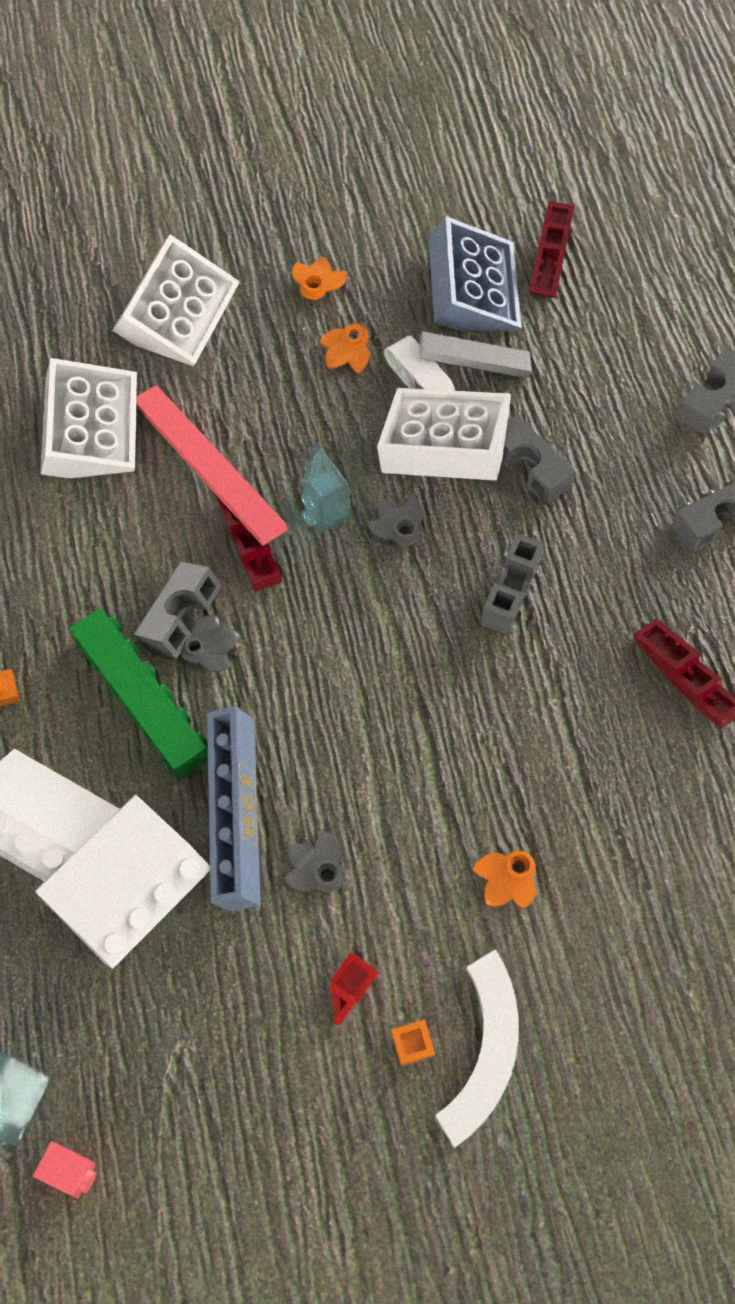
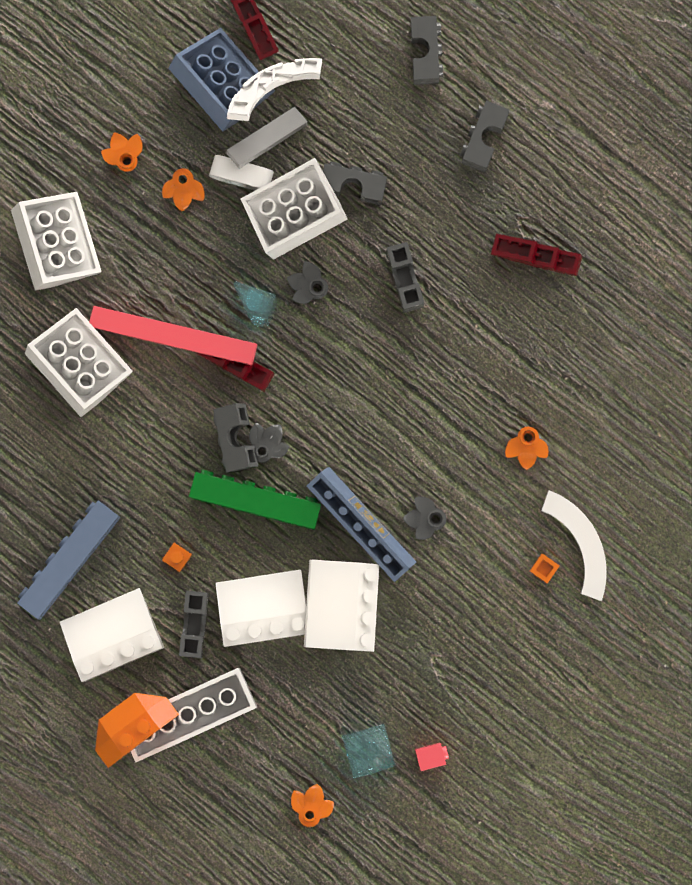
camera: 35 degrees left, 20 degrees up
(350, 985) = (491, 564): red slope -> none
(516, 304) = (268, 79): none -> white tile

